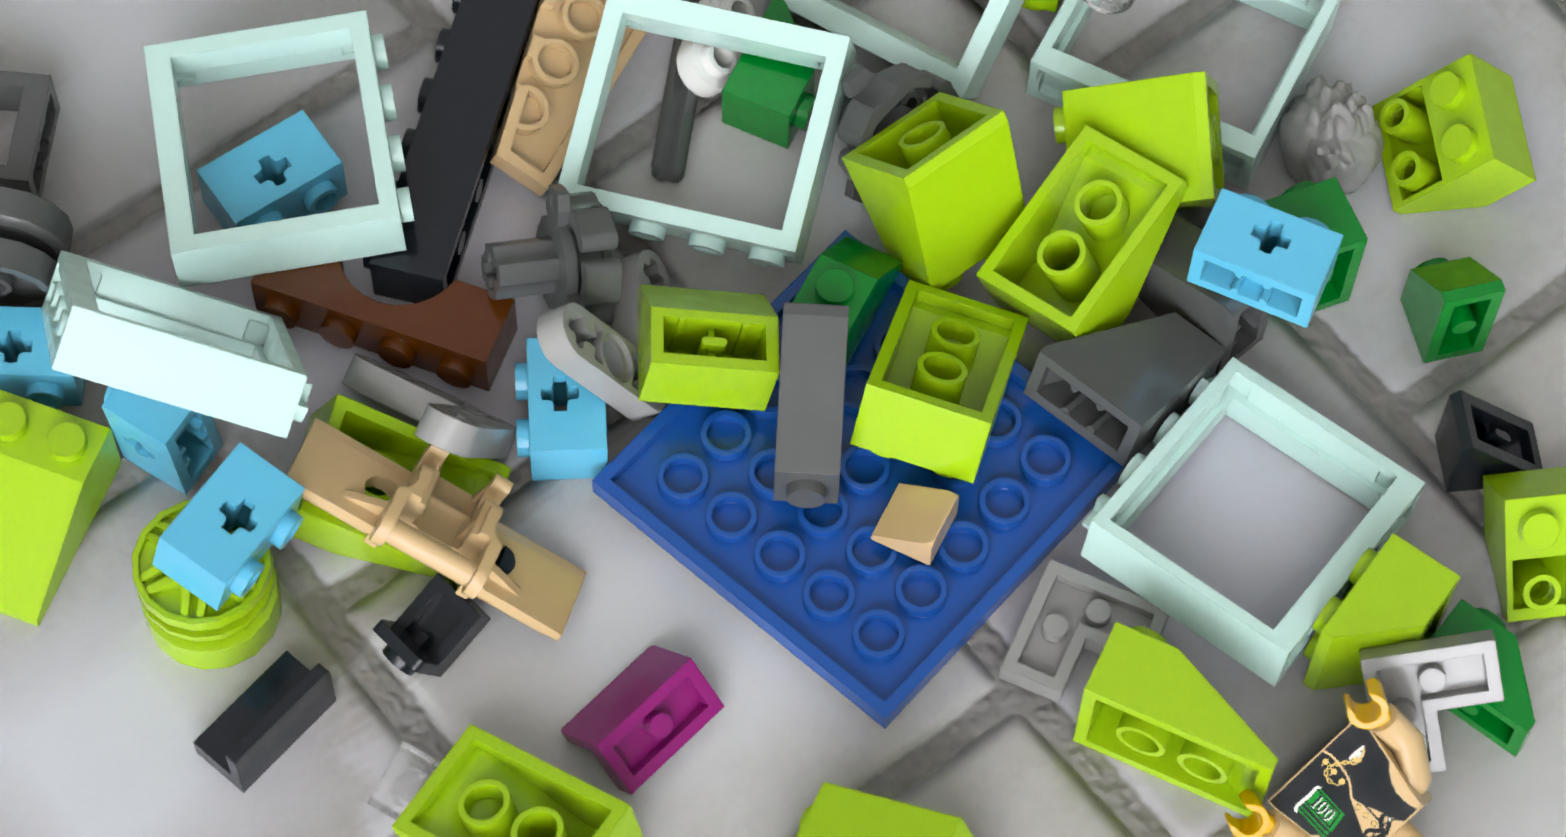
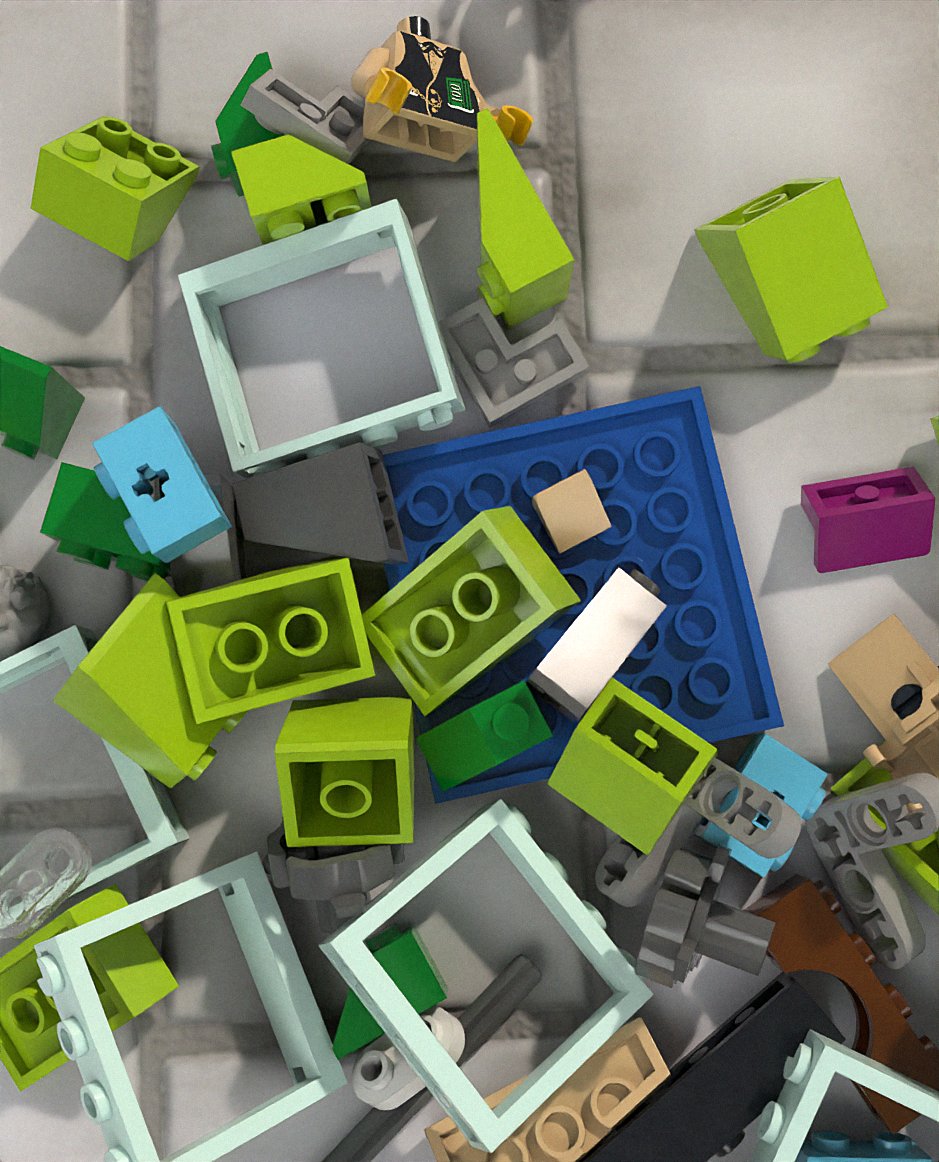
camera: 140 degrees left, 20 degrees up
(1482, 441) = (105, 289): black slope -> none

